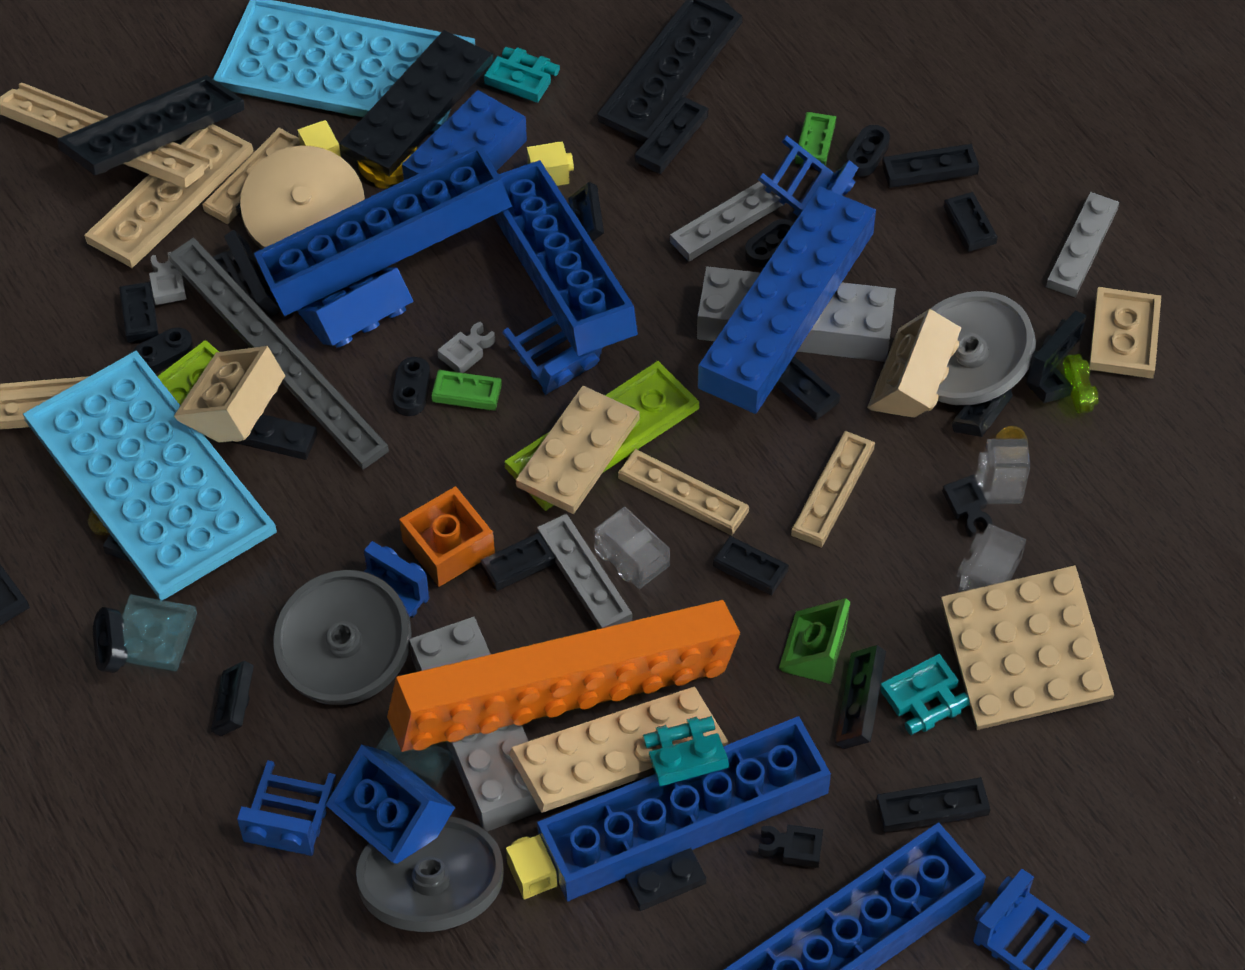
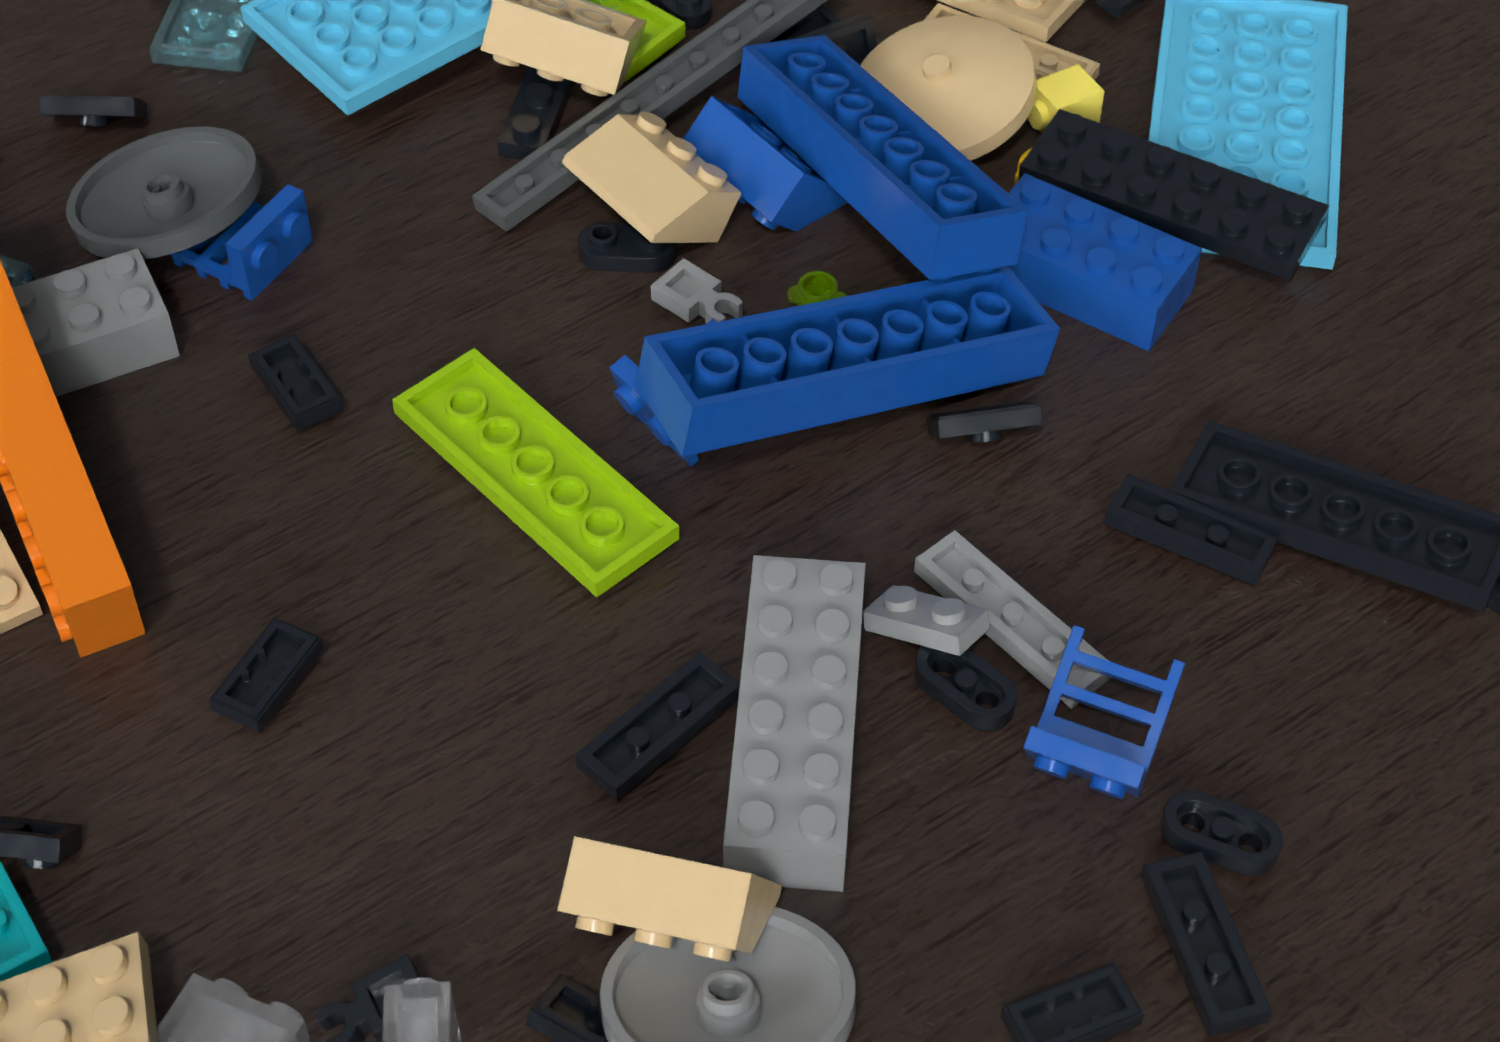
camera: 85 degrees right, 5 degrees down
(373, 355) = (654, 180): none -> tan slope
(447, 536) = (329, 287): orange brick -> none
(466, 390) = (616, 303): bright green plate -> none
(470, 282) = (813, 288): none -> clear neon green plate
(521, 73) = (1268, 320): teal plate -> none
(554, 159) = (1084, 366): light yellow brick -> none
(577, 449) = (488, 427): tan plate -> none
(584, 573) = (265, 460): light grey plate -> none
(631, 548) = (306, 512): clear brick -> none
(683, 492) = (425, 586): tan tile -> none
(735, 247) = (926, 619): none -> light grey plate
(786, 300) = (775, 658): blue brick -> none
(816, 641) = (99, 774): bright green slope -> none
(817, 136) = (1230, 747): bright green plate -> none
(833, 489) = (431, 797): tan tile -> none

